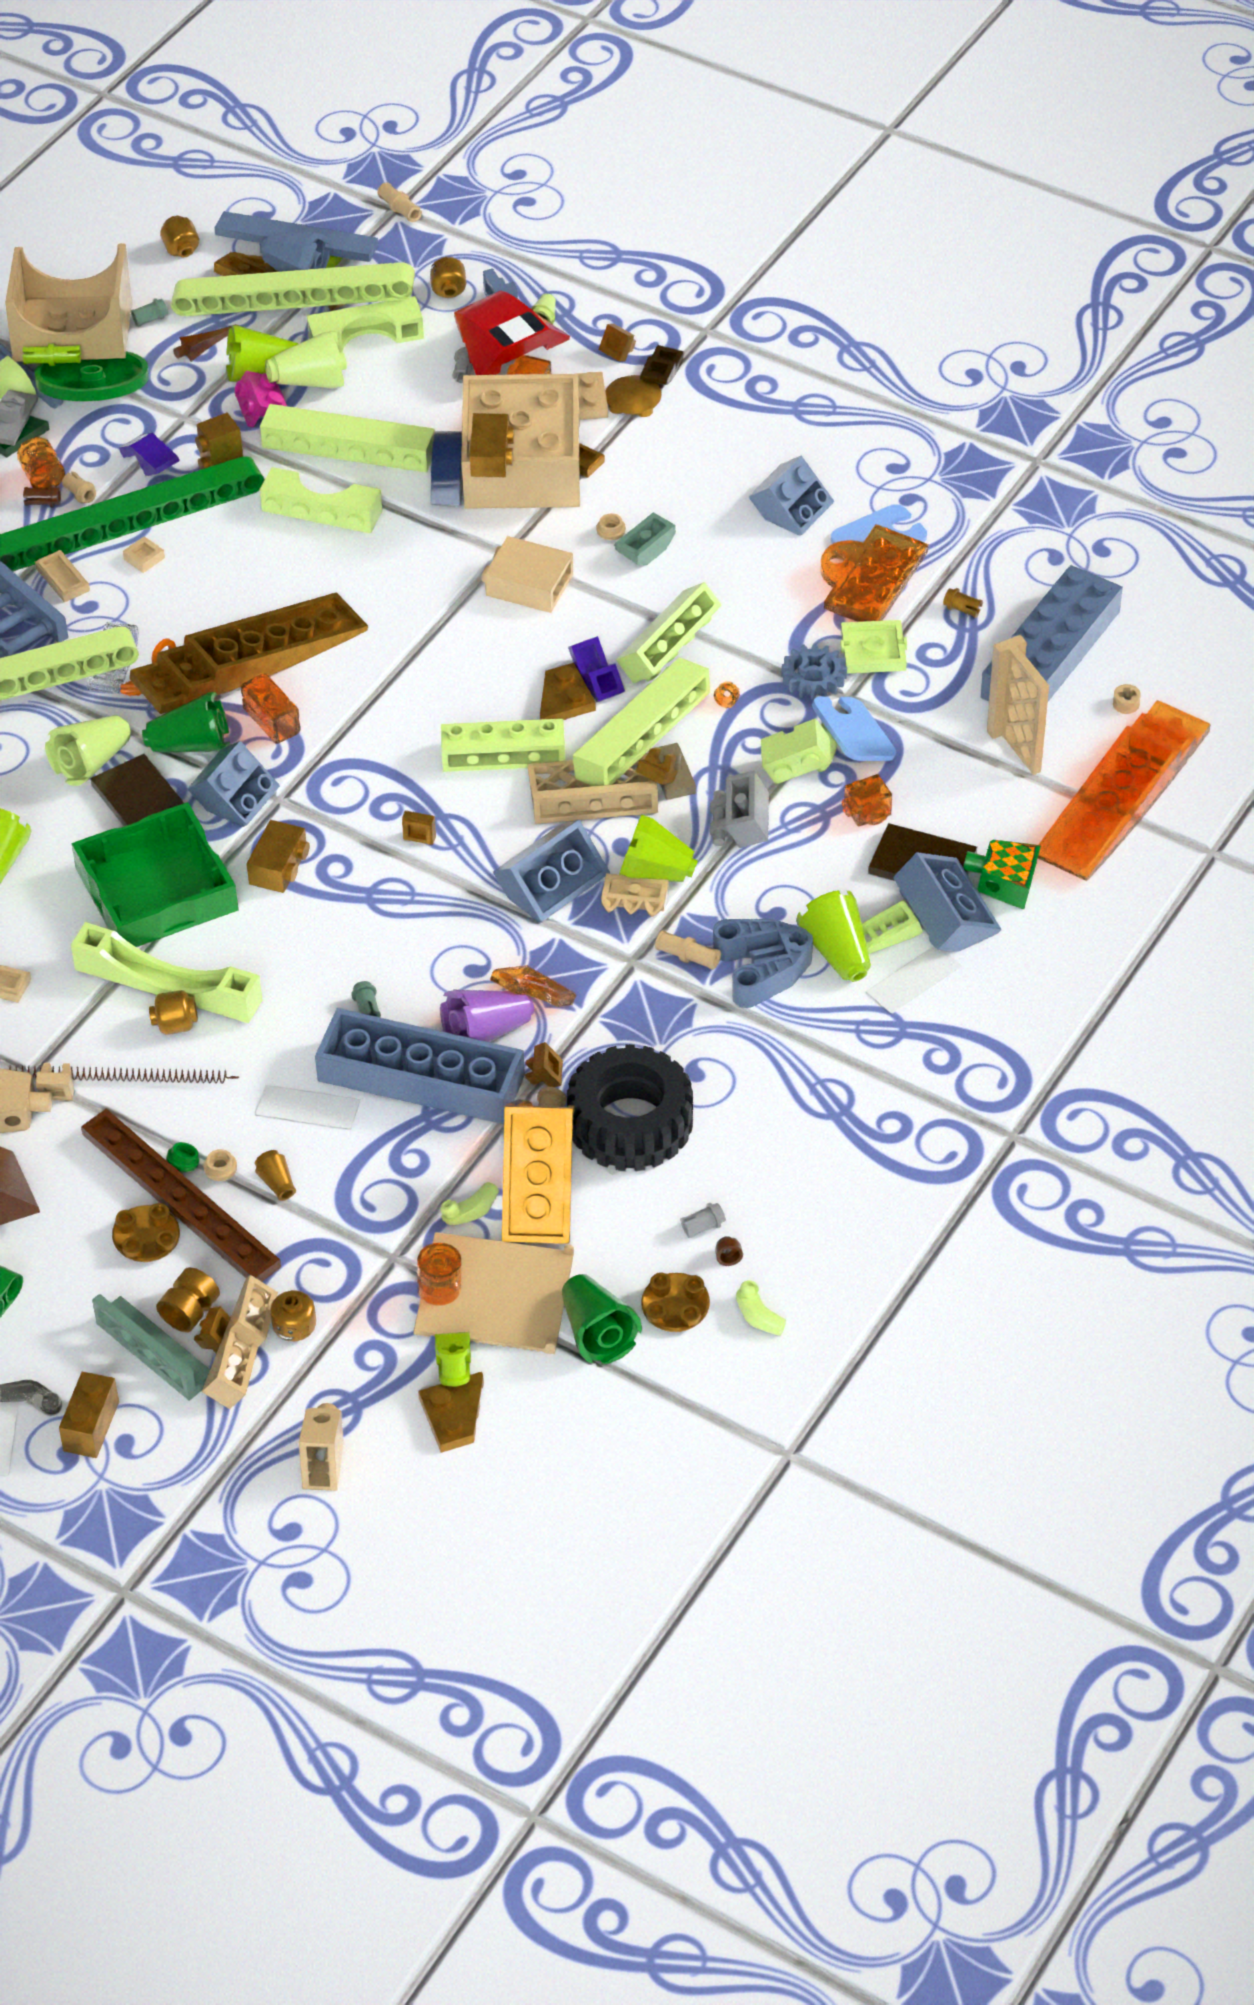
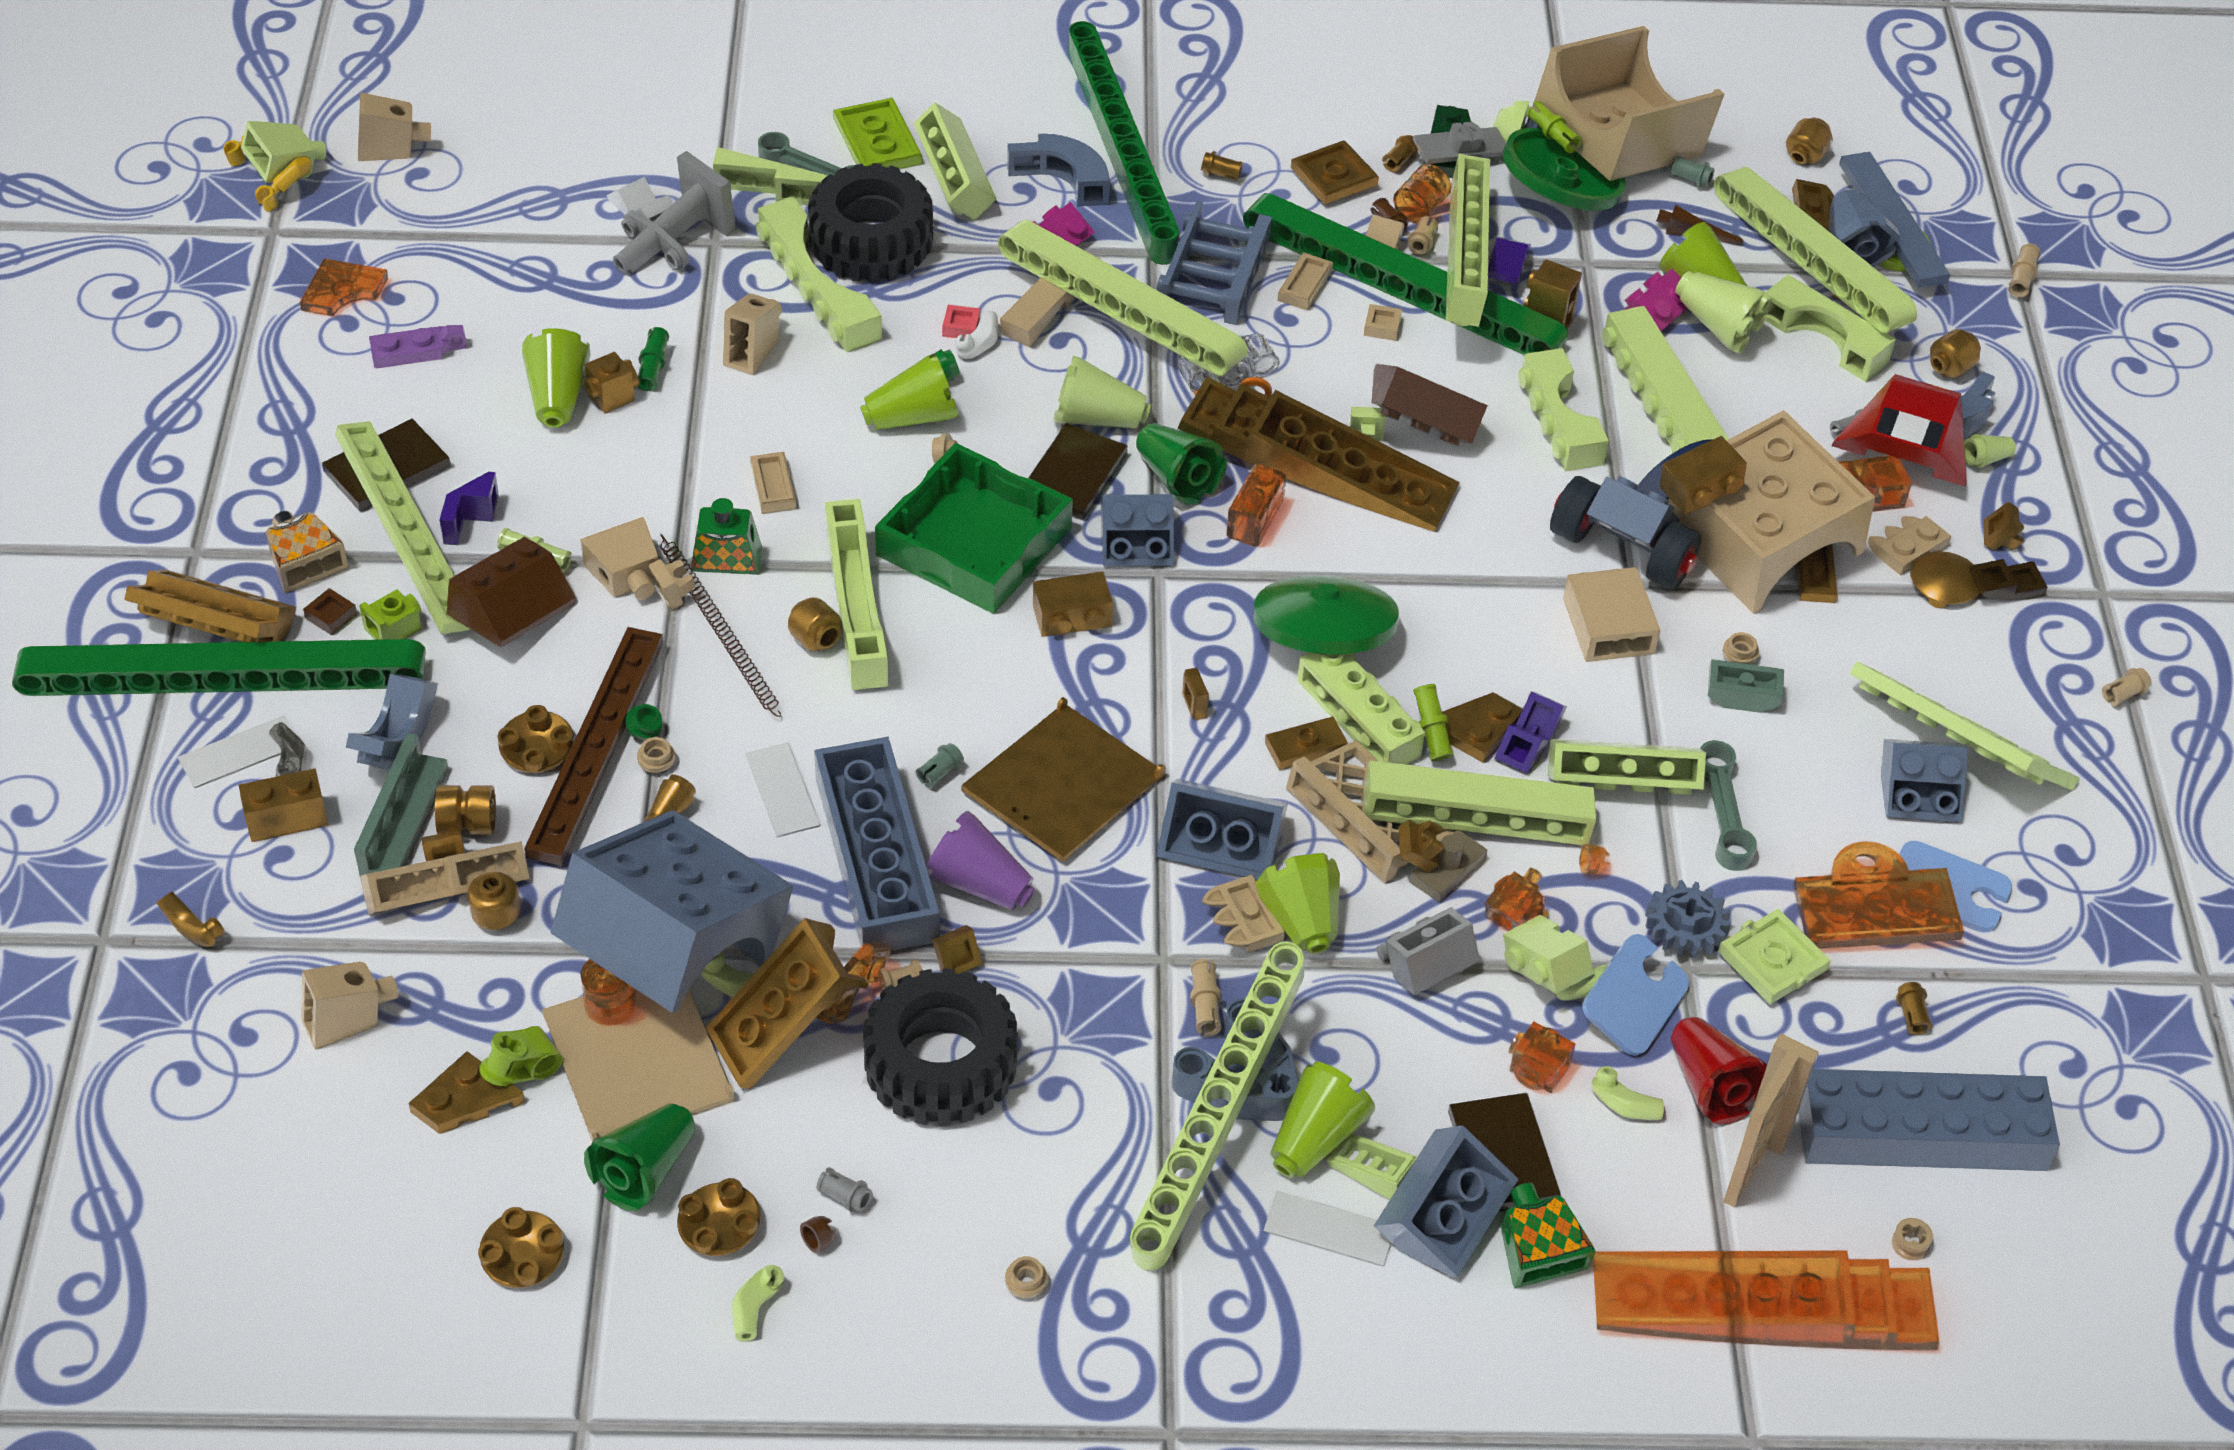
camera: 55 degrees right, 0 degrees up
(44, 1029) = (726, 540): none -> green torso
(58, 860) = (941, 445): none -> tan plate
(59, 503) = (1385, 230): none -> tan tile
(63, 1311) = (404, 711): none -> sand blue arch
(130, 457) = (1468, 241): none -> yellowish green brick
(158, 1523) = (187, 922): none -> pearl gold arm
(244, 607) = (1368, 421): none -> yellowish green tile
(264, 564) = (1426, 404): none -> reddish brown slope
(411, 719) = (1326, 614): none -> green dish
(415, 1193) = (667, 903): none -> sand blue container
(433, 940) = (1063, 781): none -> pearl gold door
(464, 513) = (1632, 516): none -> brick
(506, 792) = (1305, 740): none -> pearl gold plate
(530, 982) = (1053, 882): clear orange tile -> none
(552, 710) = (1433, 722): none -> lime pin
(619, 1426) = (521, 1248): none -> pearl gold dish
(735, 748) = (1516, 900): none -> clear orange piece
(746, 609) = (1727, 809): none -> sand green piece
(777, 453) = (1963, 729): none -> yellowish green wing
(793, 356) = (2134, 682): none -> tan pin
(799, 987) = (1214, 1120): none -> yellowish green beam
(844, 1152) = (1026, 1267): none -> tan plate
(925, 780) = (1623, 1100): none -> yellowish green arm
(942, 717) = (1717, 1069): none -> red cone

